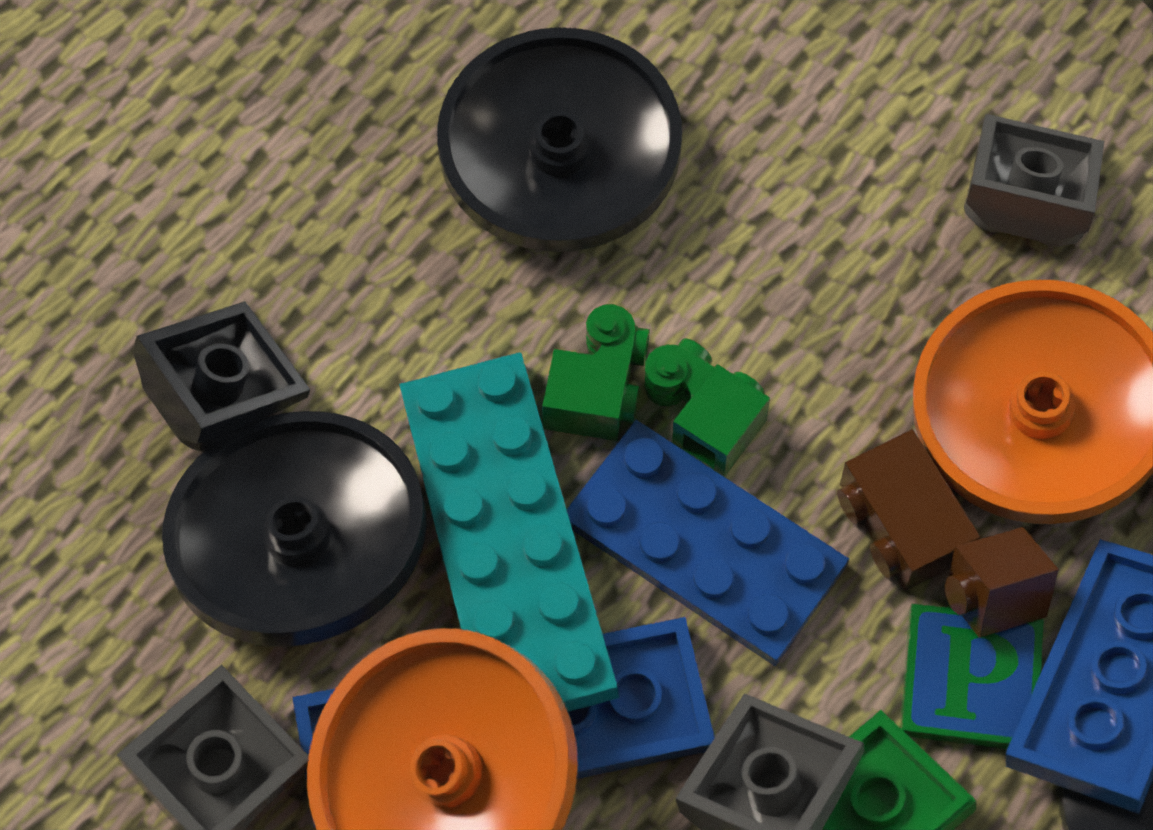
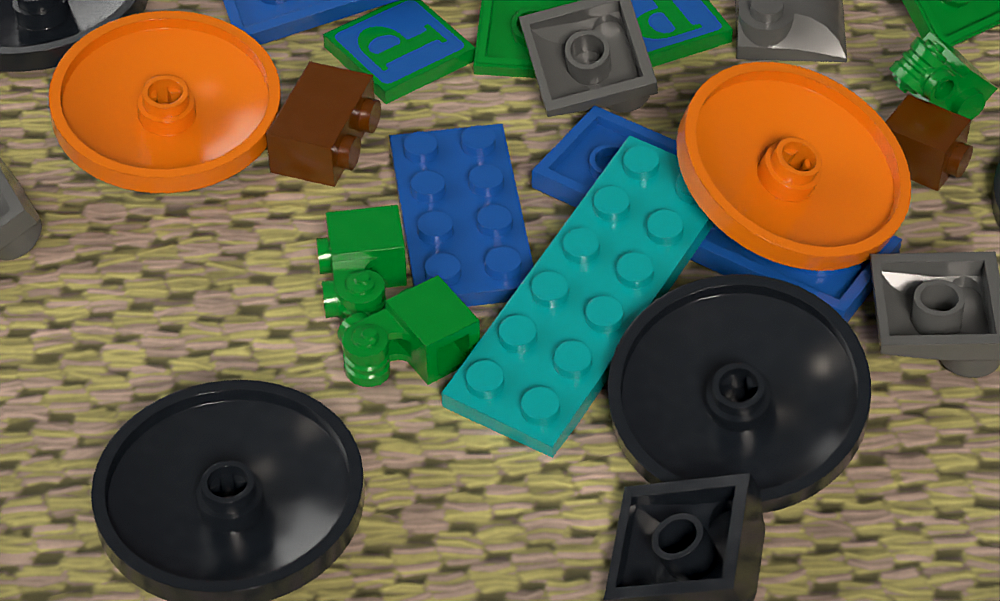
camera: 135 degrees left, 20 degrees down
(1001, 582) = (326, 38): reddish brown brick -> none

